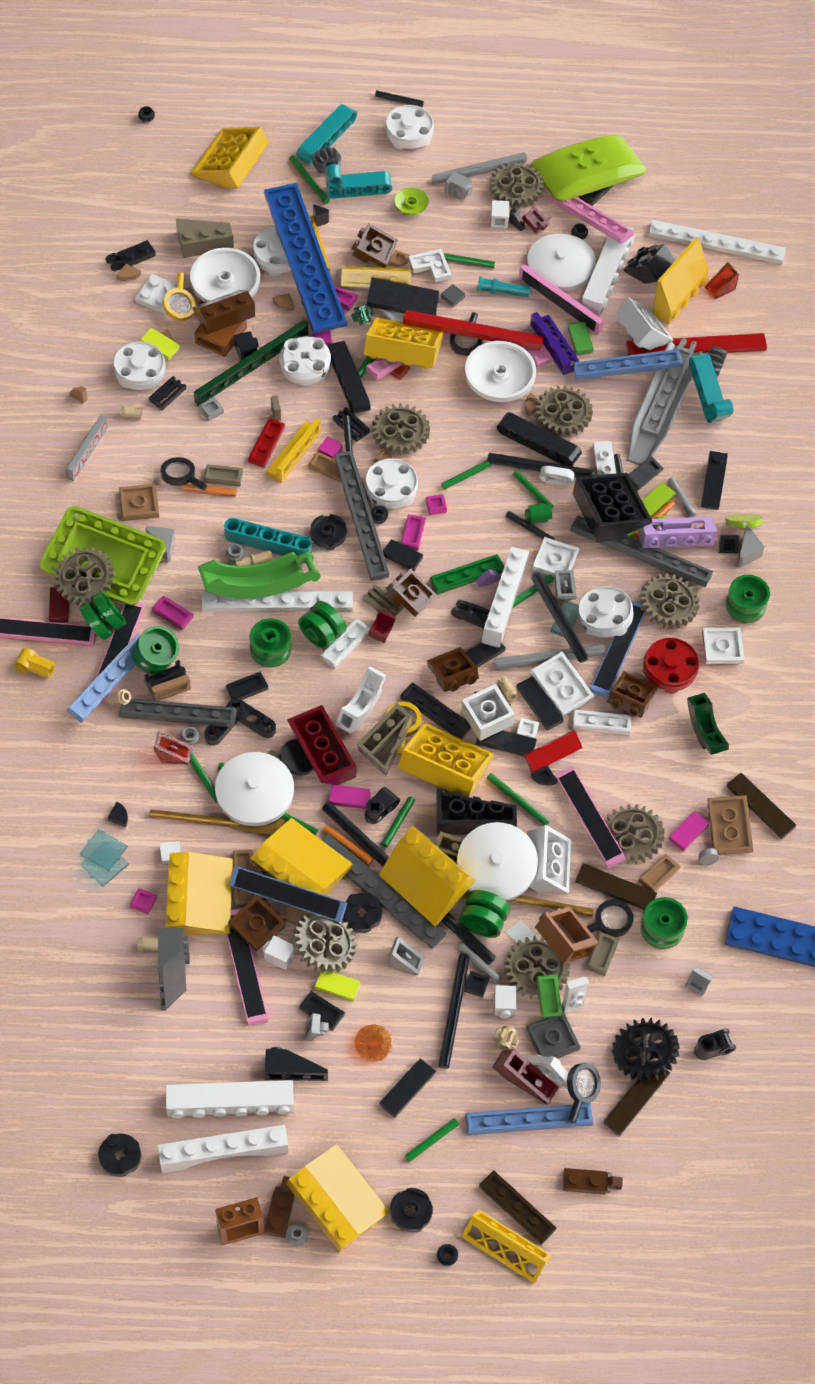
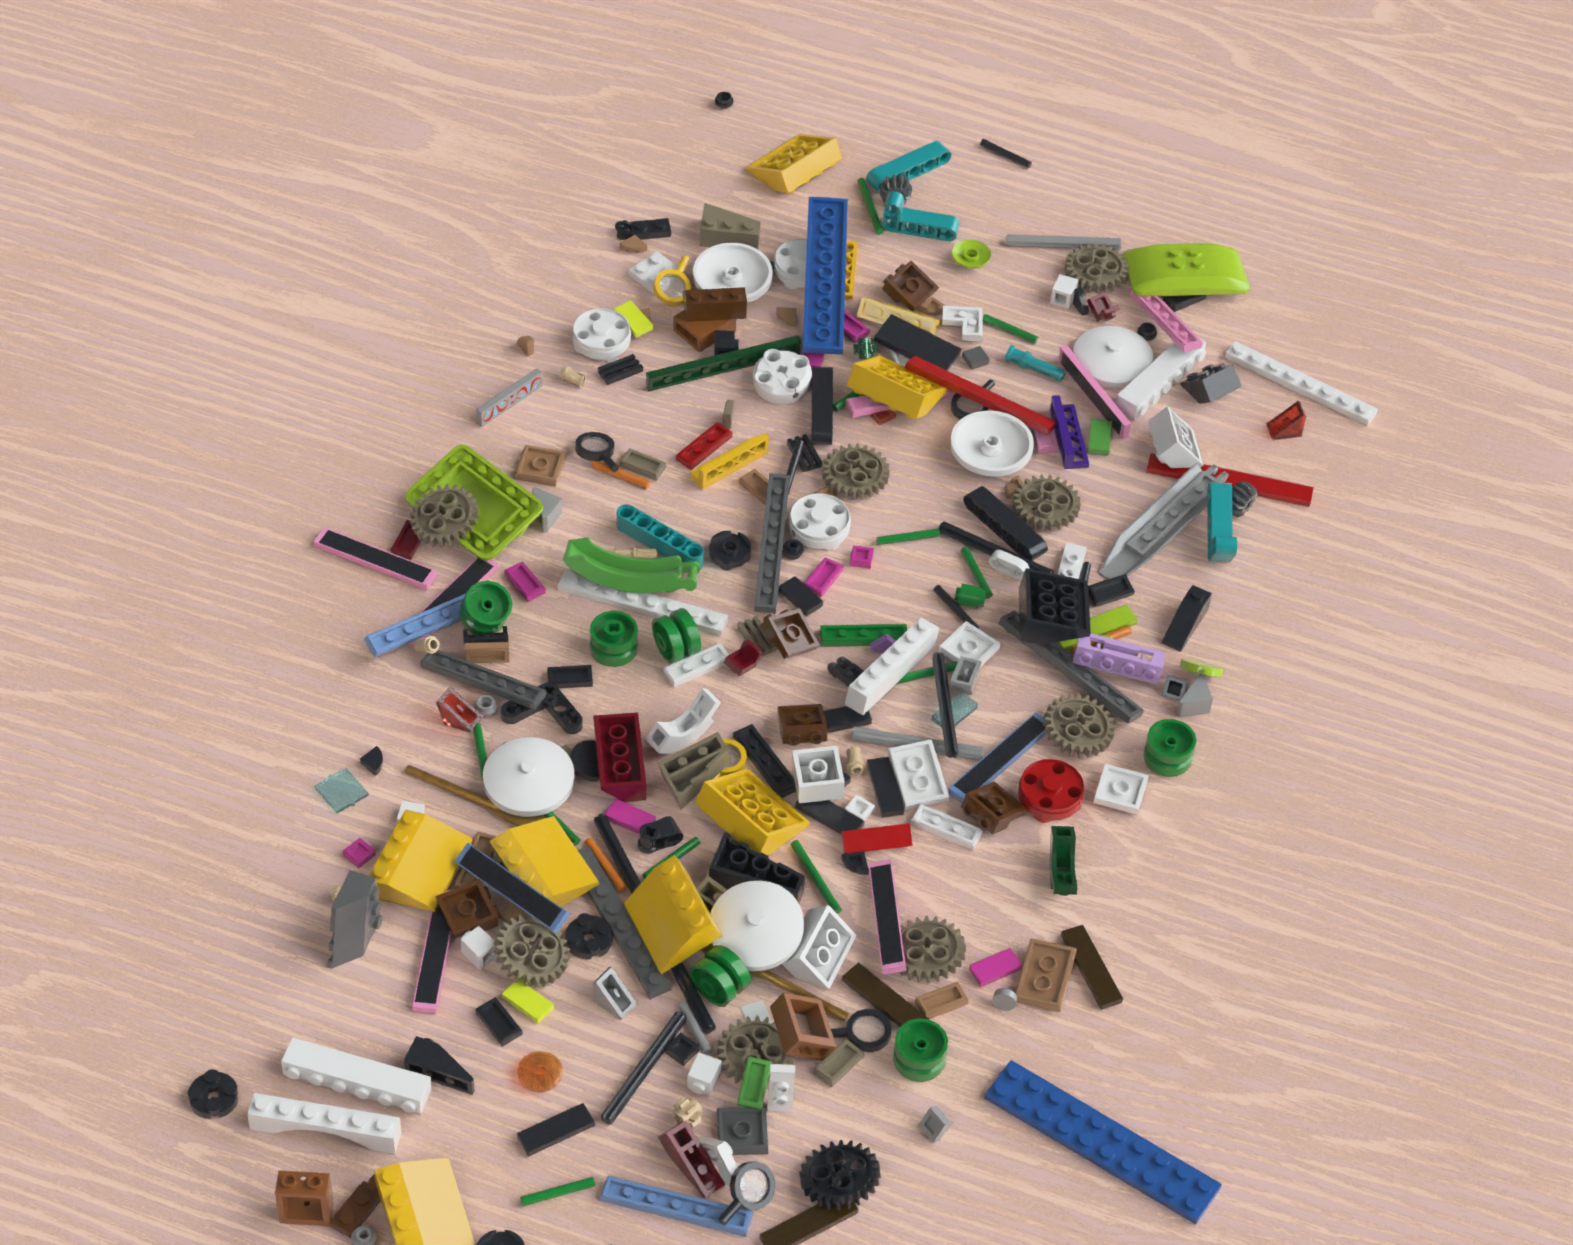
camera: 20 degrees right, 10 degrees down
(30, 661) = (352, 584): yellow piece -> none
(102, 615) = (445, 558): green wheel -> none
(104, 864) = (335, 803): clear light blue piece -> none
(211, 409) = (660, 397): light grey tile -> none
(235, 548) = (619, 540): light grey plate -> none
(315, 1027) = (482, 1035): light grey tile -> none
(320, 215) = (866, 242): black slope -> none
(330, 447) = (770, 466): dark pink tile -> none
(409, 127) = (1002, 182): white piece -> none
(458, 185) = (1030, 252): light grey brick -> none
(605, 612) = (999, 714): white piece -> none
(627, 364) = (1138, 474): medium blue tile -> none
(681, 282) = (1235, 407): yellow slope -> none
(681, 497) = (1142, 625): light grey piece -> none
(717, 1042) = (924, 1196): black piece -> none

